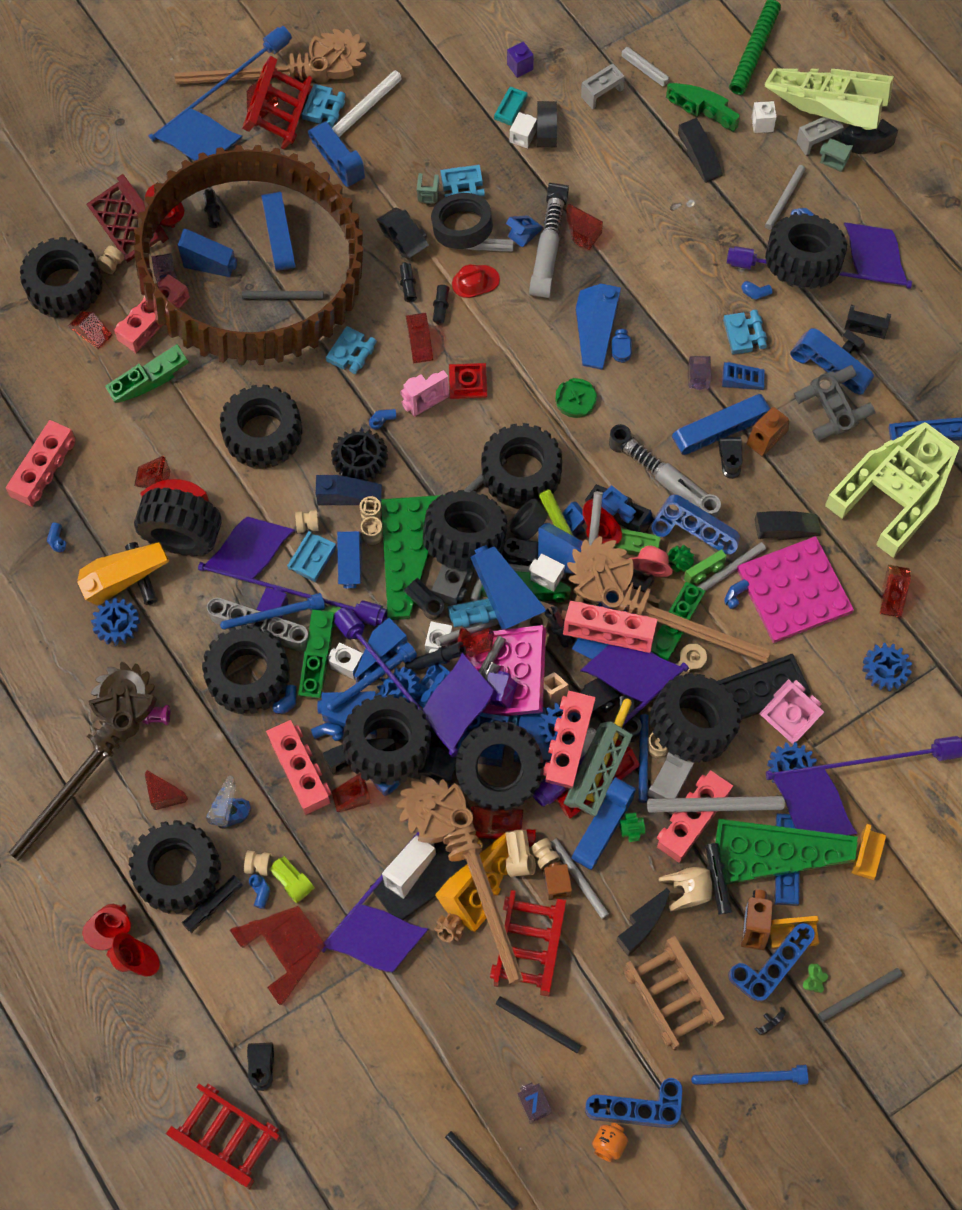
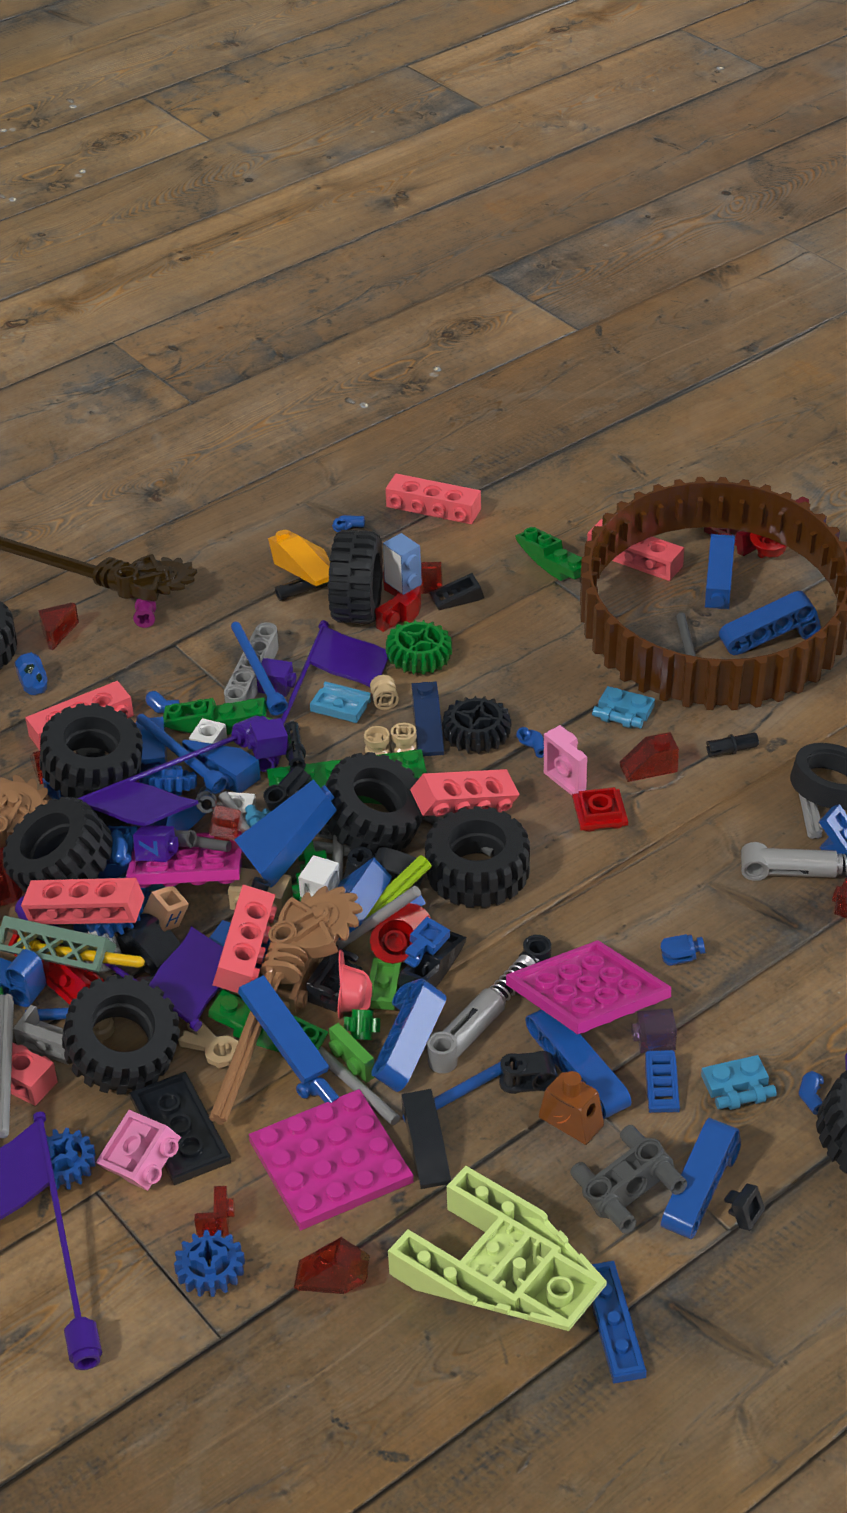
camera: 85 degrees right, 25 degrees down
(55, 256) = (656, 464): black tyre -> none
(91, 329) = (602, 505): clear red slope -> none
(123, 626) = (250, 570): blue gear -> none
(163, 266) = (695, 549): brick -> none
(170, 476) = (402, 563): none -> medium blue brick
(175, 441) = (464, 591): none -> black slope
(212, 208) = (791, 578): black axle -> none
(221, 807) = (17, 652): clear slope -> none
(241, 643) = (172, 647): black tyre -> none
(254, 403) = (499, 639): black tyre -> none
(255, 497) = (418, 647): none -> green gear
(349, 558) = (337, 725): blue slope -> none
(368, 592) = (294, 739): none -> black pin
(375, 604) = (267, 738): none -> dark purple brick
(402, 232) = (799, 726): black brick -> none
(440, 304) = (706, 775): black axle -> none
(460, 463) = (451, 791): none -> coral brick
(475, 280) = (753, 805): red piece -> none
(499, 715) = (119, 849): none -> blue arm
(575, 398) = (596, 914): green tile -> none
(595, 319) = (721, 926): blue wedge -> none
(666, 405) = (588, 986): none -> dark pink plate
(697, 604) = (283, 1029): none -> blue tile
(737, 500) = (467, 1086): none -> blue bar
(843, 658) = (218, 1219): none -> clear red bracket
(867, 323) = (790, 1227): black hinge -> none

